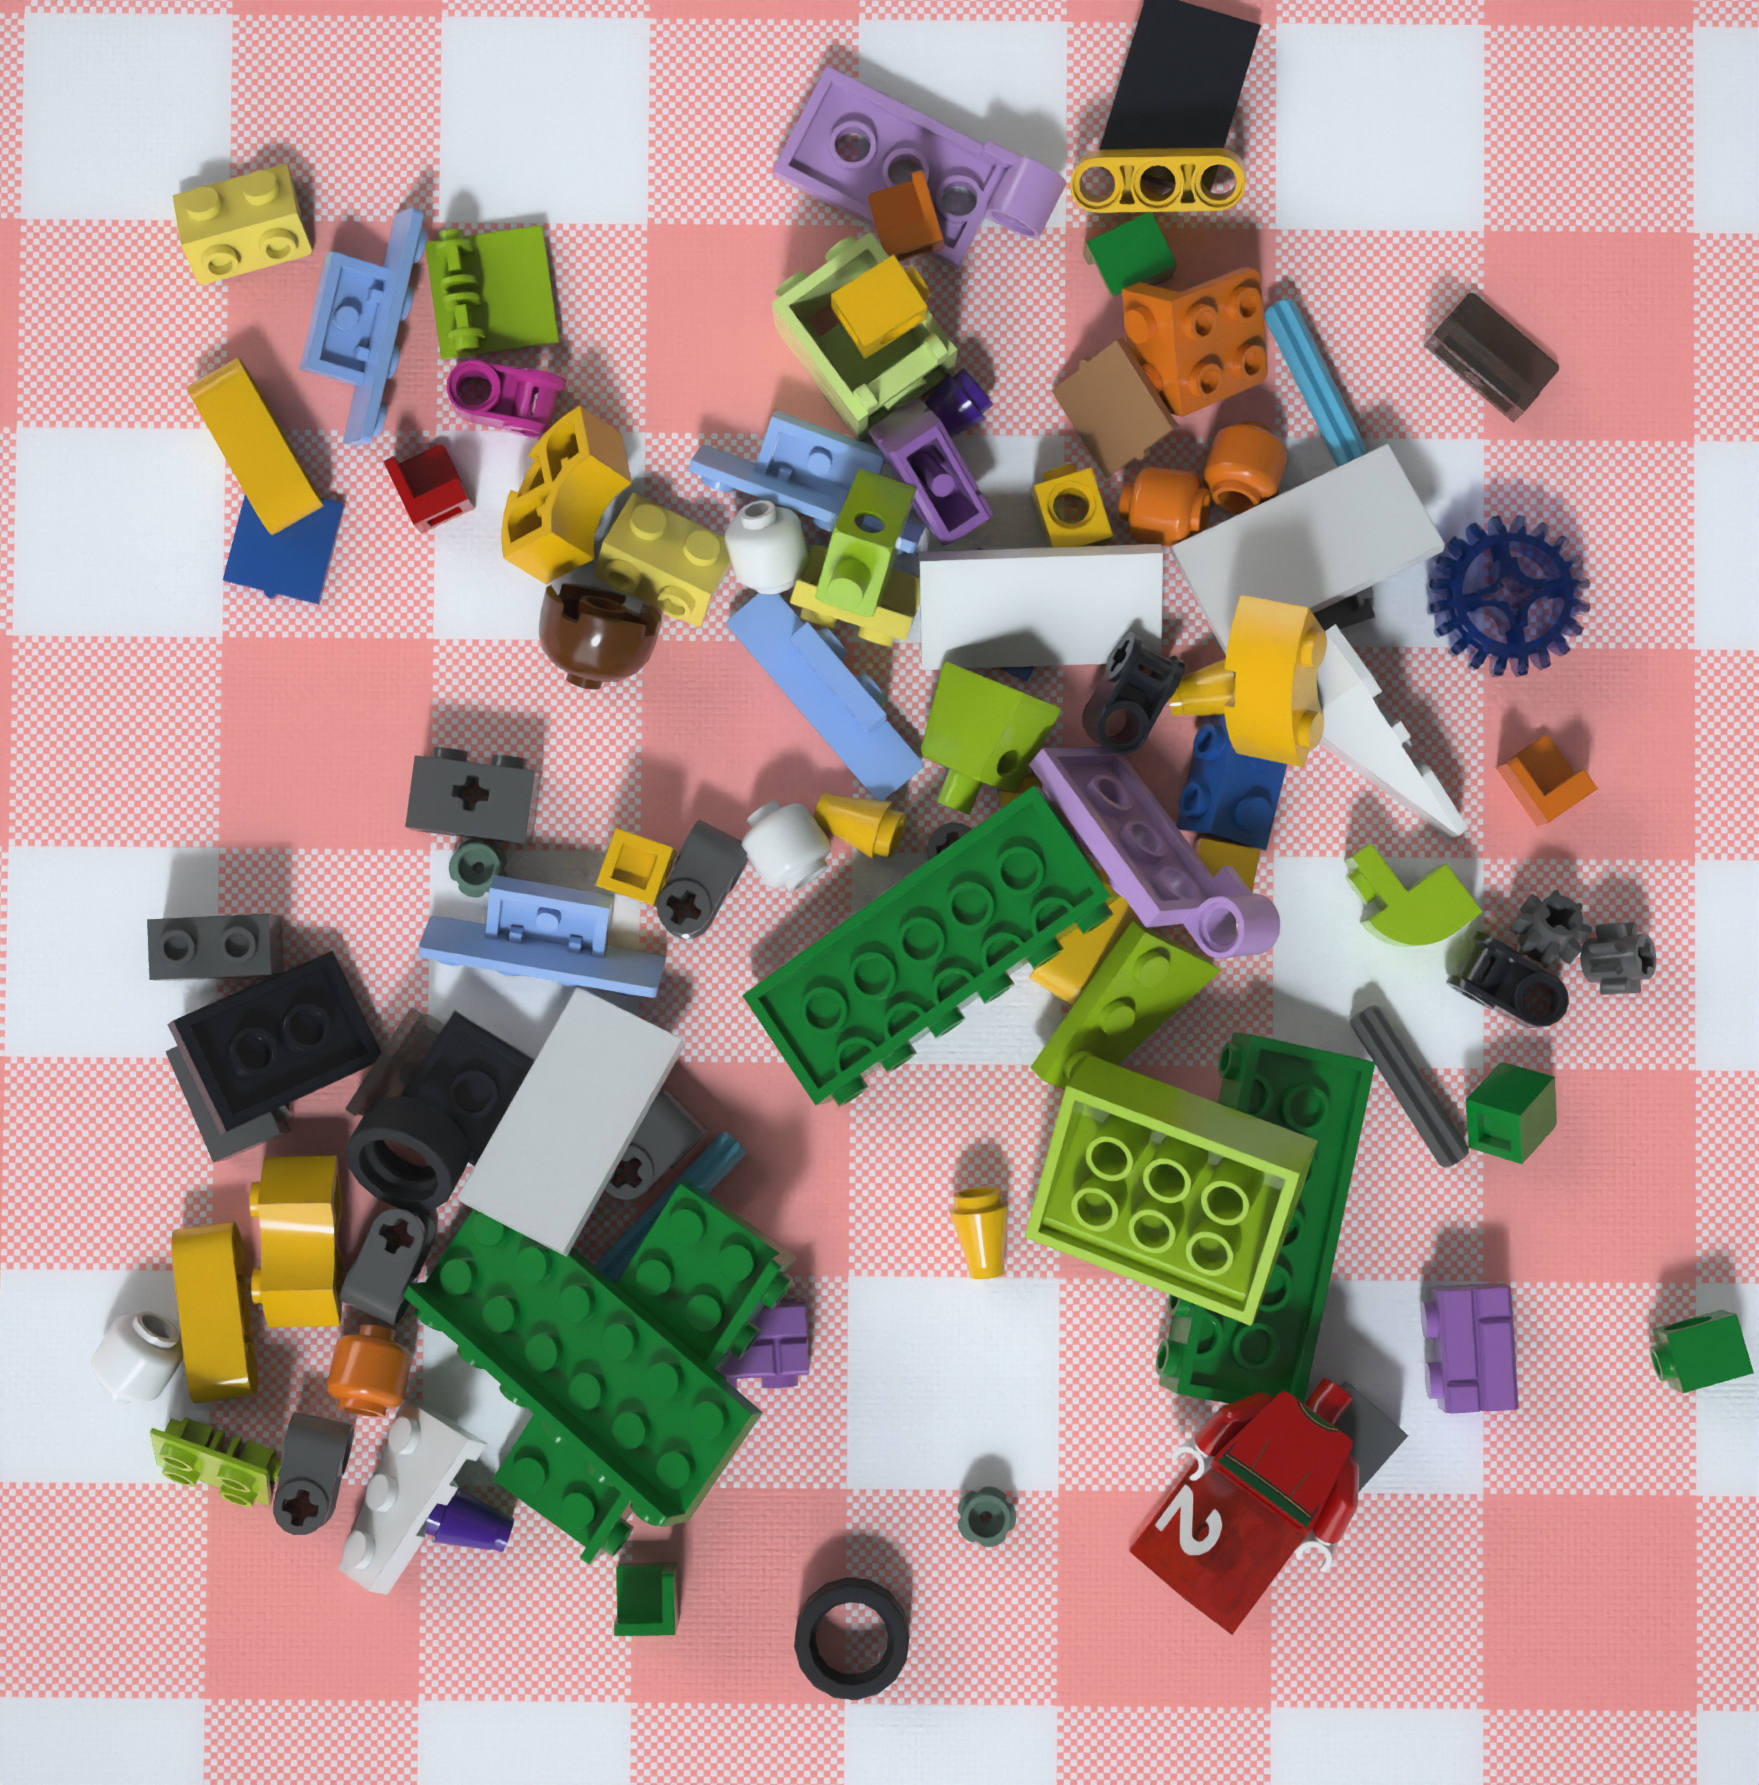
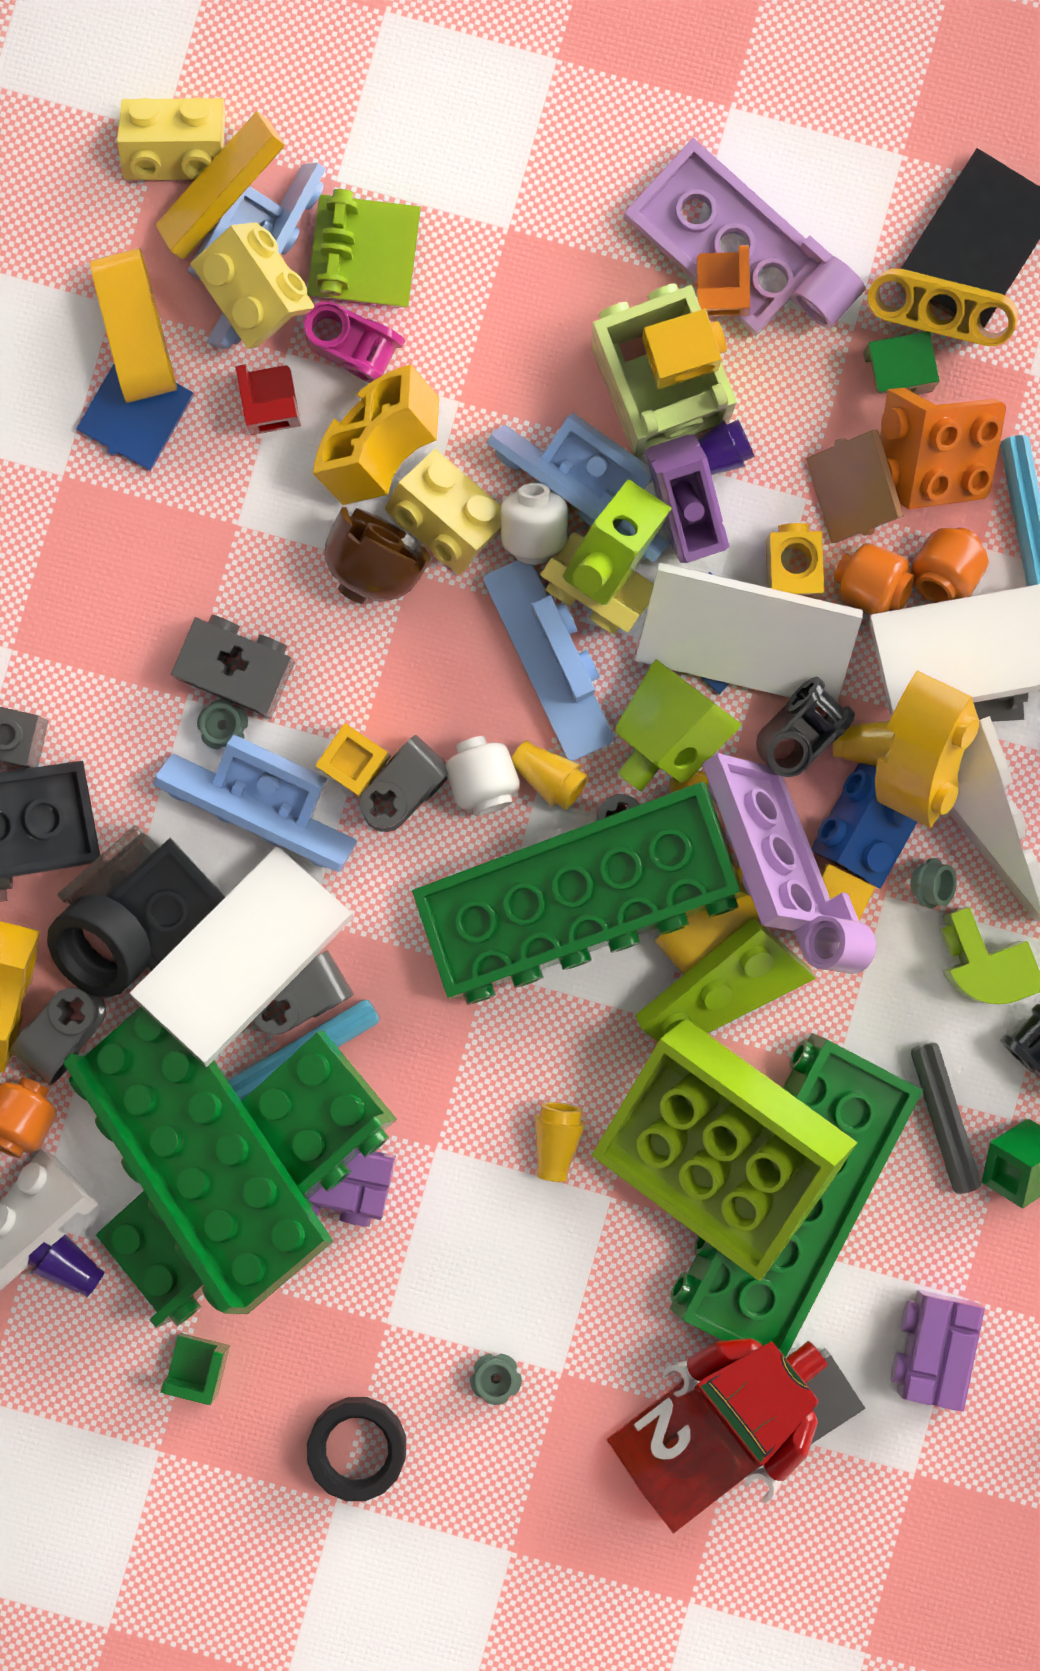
camera: 20 degrees right, 0 degrees up
(310, 262) = (220, 185): none -> yellow tile
(376, 362) = (251, 282): none -> light yellow bracket
(1324, 828) = (933, 883): none -> sand green plate

